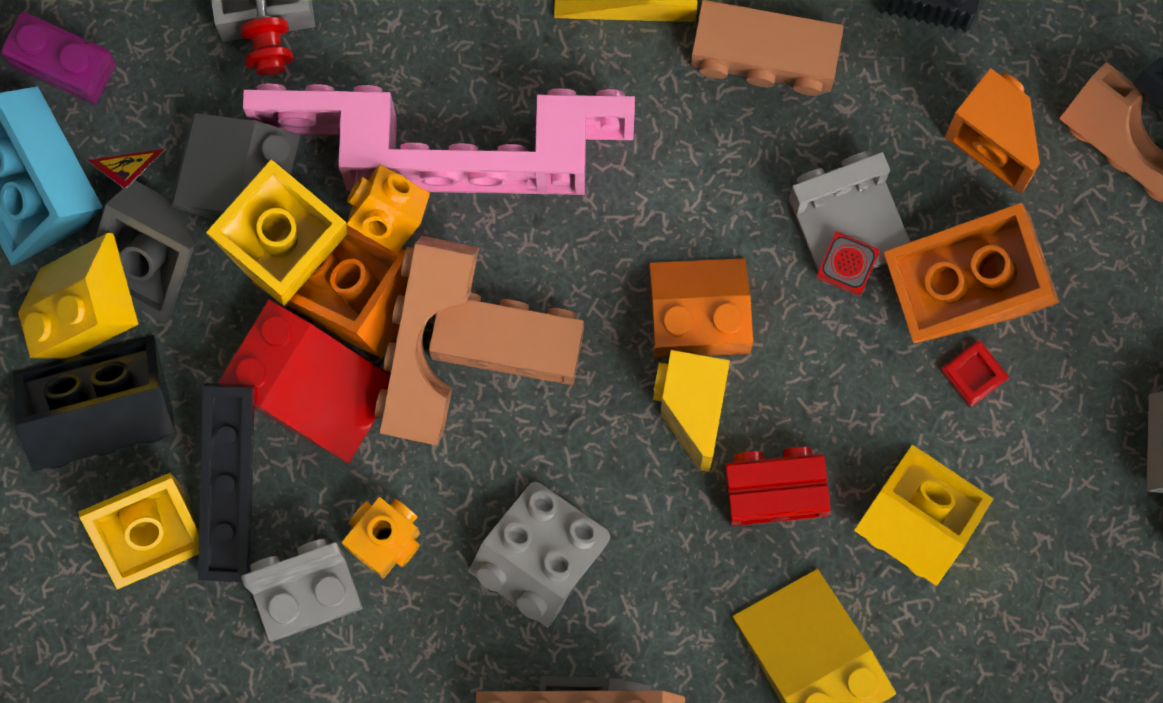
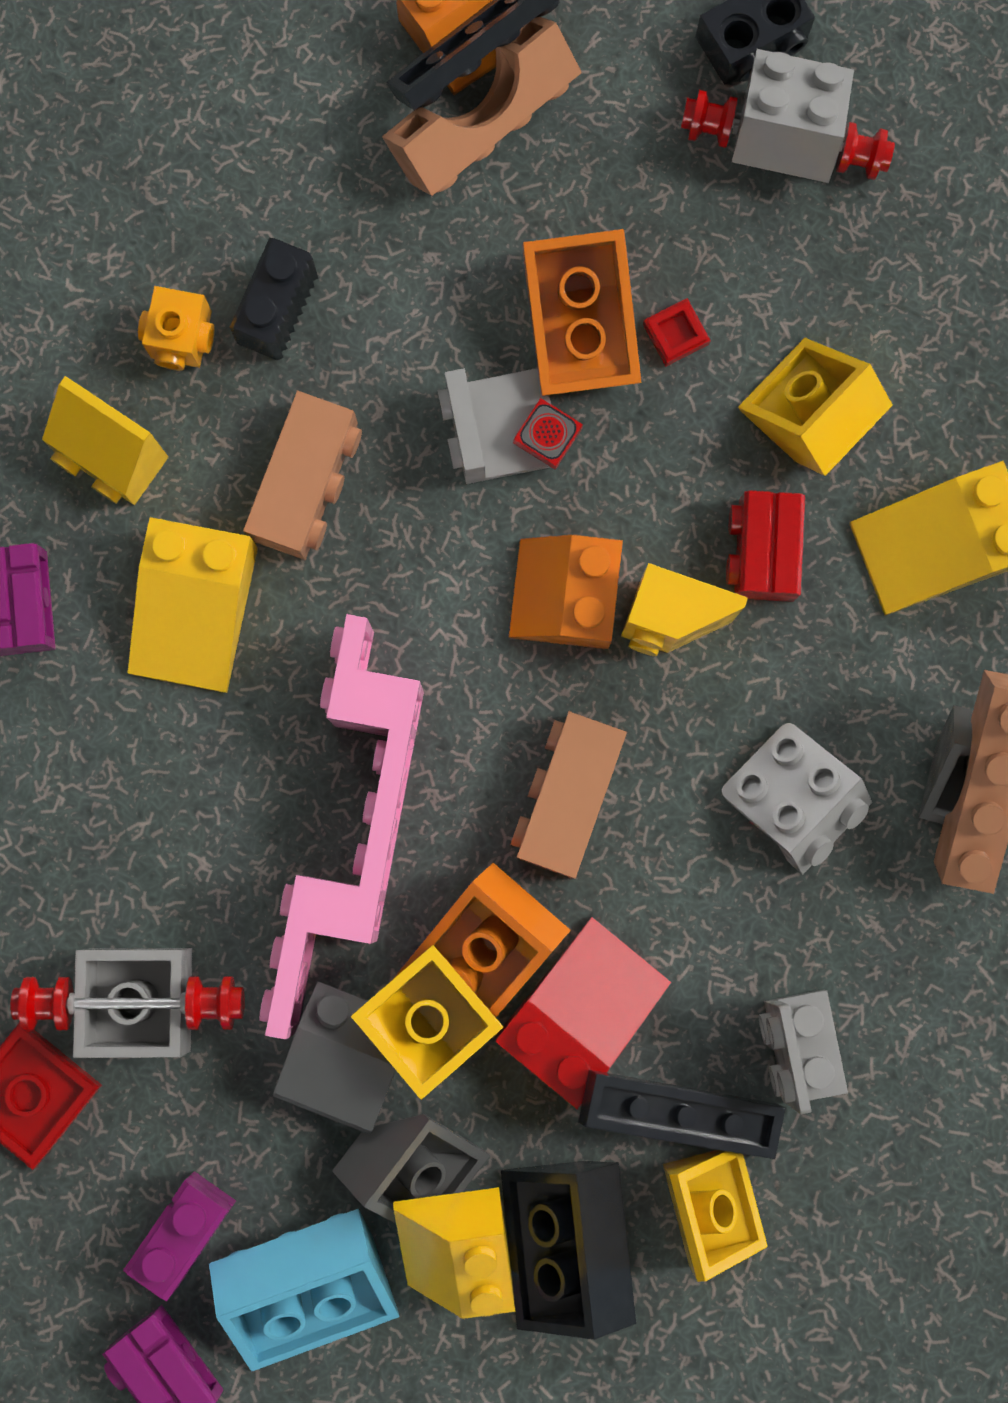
camera: 85 degrees left, 5 degrees up
(126, 167) = (313, 1176): sticker -> none
(383, 554) = (779, 960): light orange brick -> none
(387, 207) = (422, 898): light orange brick -> none
(416, 398) = (514, 855): nougat arch -> none
(998, 129) = (437, 253): orange slope -> none

